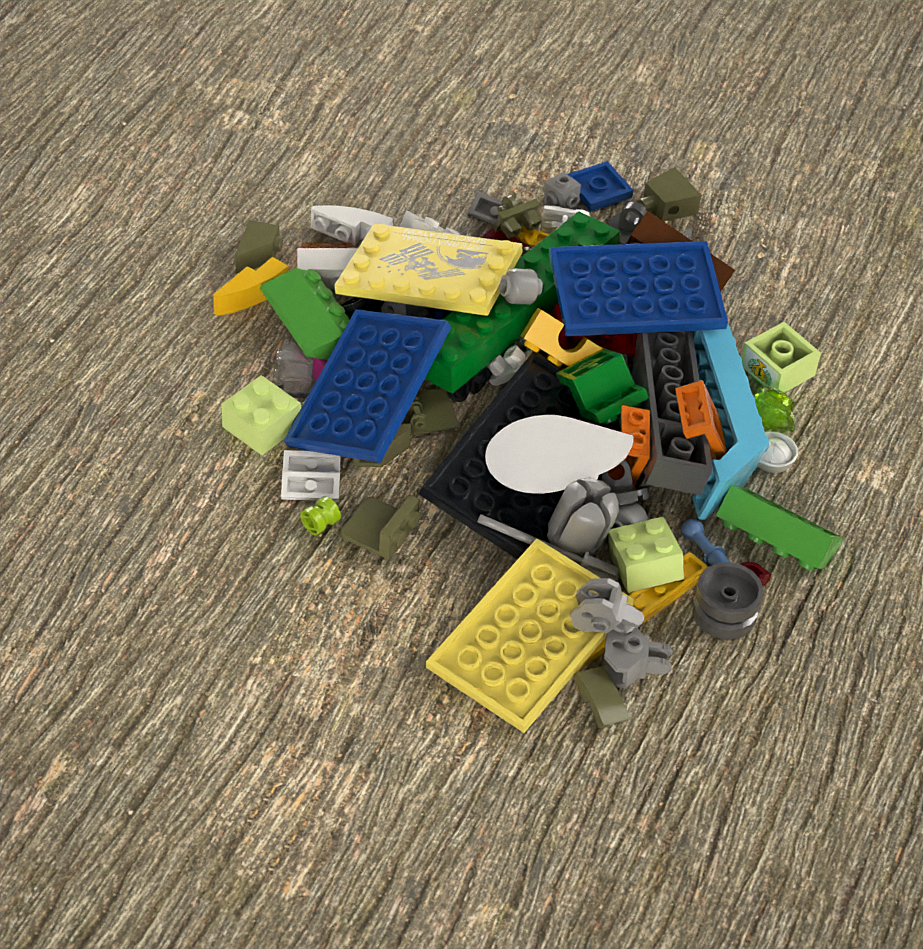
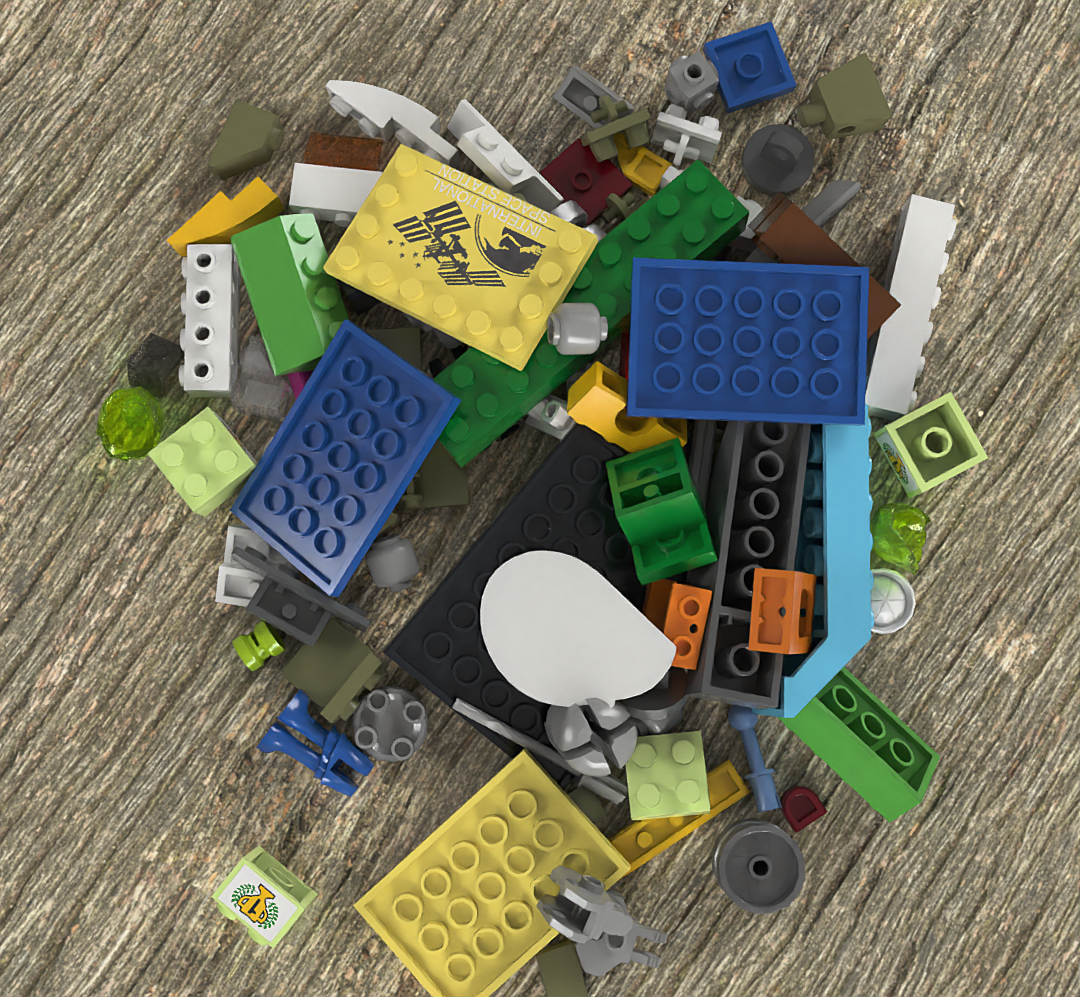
camera: 10 degrees right, 35 degrees up
(204, 393) = (130, 423): none -> clear neon green hair
(209, 369) = (153, 364): none -> clear smoke bracket
(250, 338) = (211, 320): none -> white brick
(345, 477) = (292, 604): none -> dark grey bracket
(358, 651) = (263, 897): none -> brick
(395, 579) = (334, 746): none -> blue piece
(411, 459) = (392, 562): none -> light grey head
(429, 554) = (390, 724): none -> light grey dish
(743, 287) = (912, 280): none -> white brick

